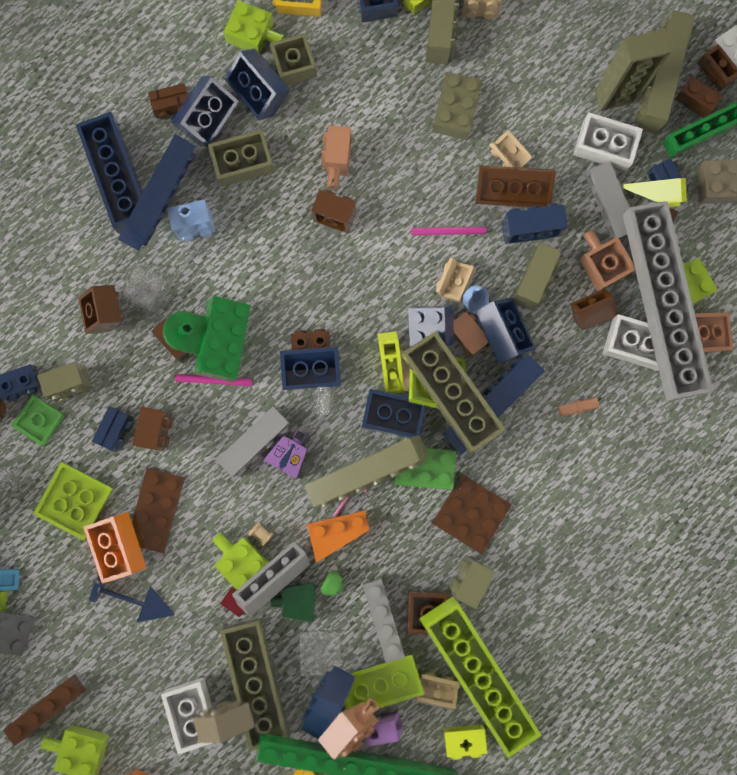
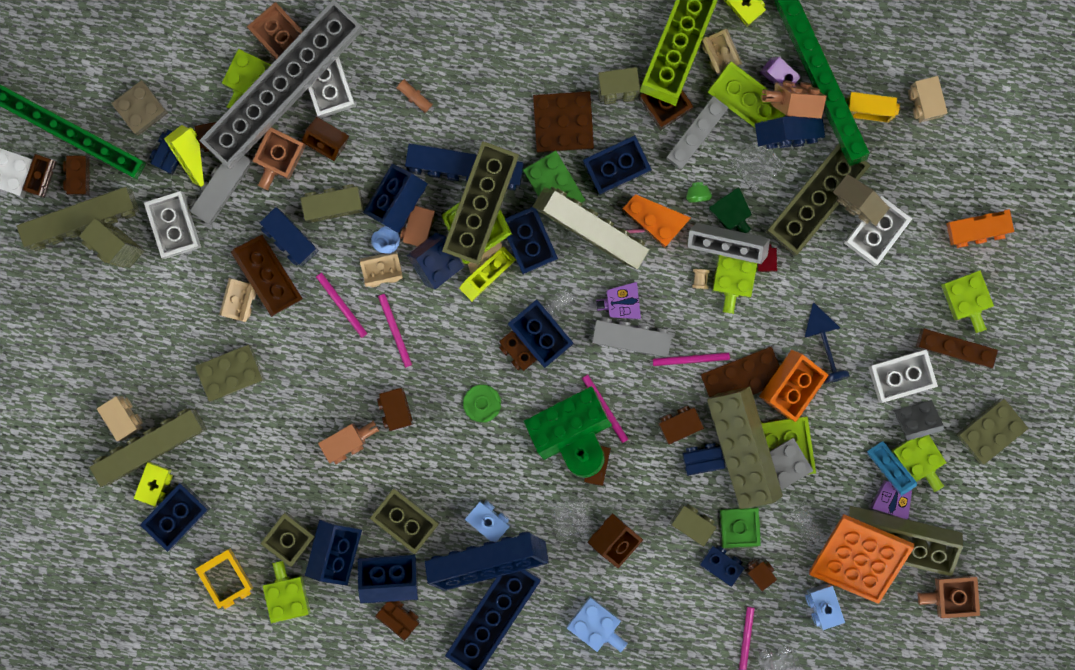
camera: 125 degrees left, 5 degrees up
(47, 248) = (596, 626): none -> light blue brick
(55, 646) = (902, 376): none -> white brick
(57, 494) = (789, 463): none -> light grey plate
(93, 469) = (745, 448): none -> olive brick
(201, 480) = (691, 359): none -> dark pink bar
(290, 285) = (483, 396): none -> bright green tile
(398, 258) = (395, 331): none -> dark pink bar
(404, 532) = (617, 165): none -> dark blue brick

